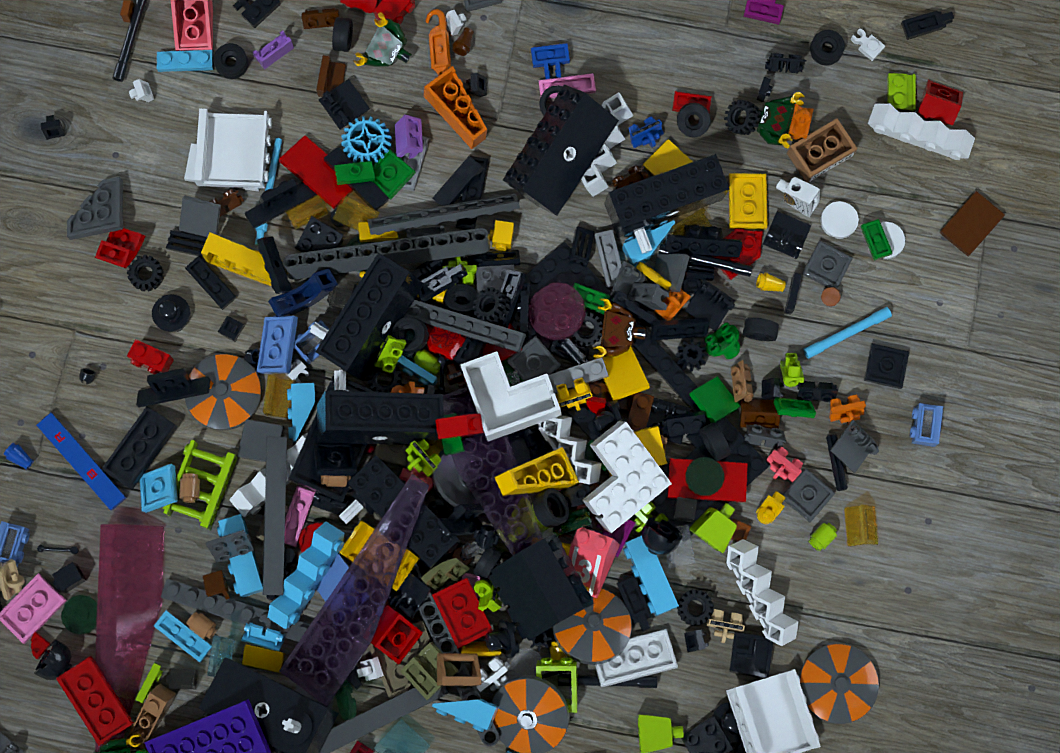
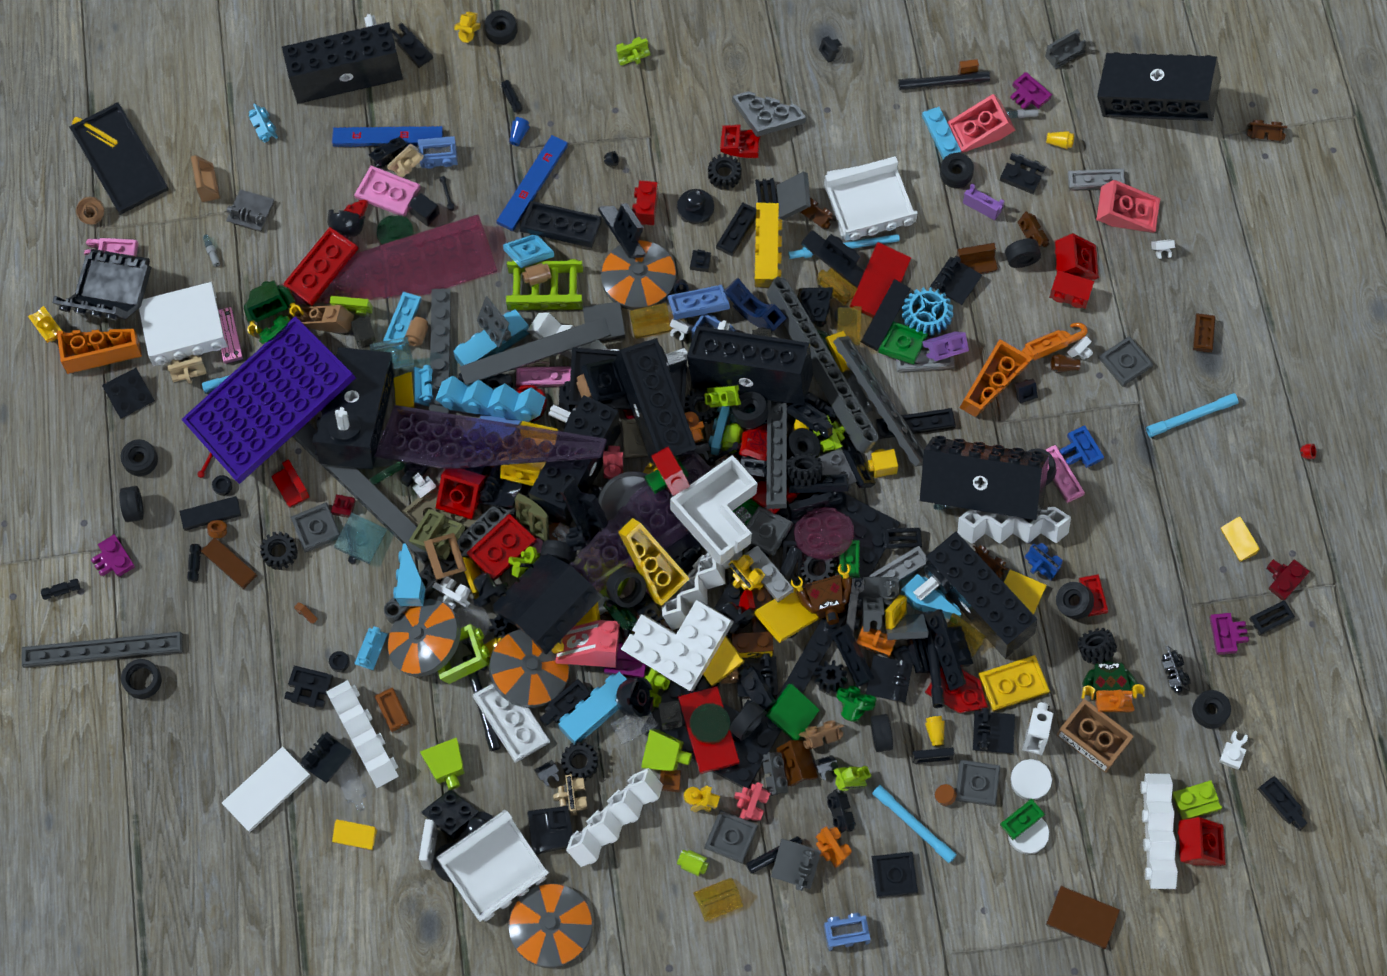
camera: 75 degrees right, 10 degrees down
(142, 91) = (895, 107): white tile -> none
(215, 584) = (458, 329): reddish brown panel -> none
(274, 265) = (770, 269): black tile -> none
(302, 401) = (655, 331): medium azure slope -> none
(354, 173) = (889, 309): green plate -> none
(385, 46) = (1029, 293): torso -> none
(420, 460) = (638, 449): lime hips -> none
(458, 182) = (919, 405): black tile -> none
(765, 89) = (1138, 660): black plate -> none
(794, 407) = (814, 792): green plate -> none

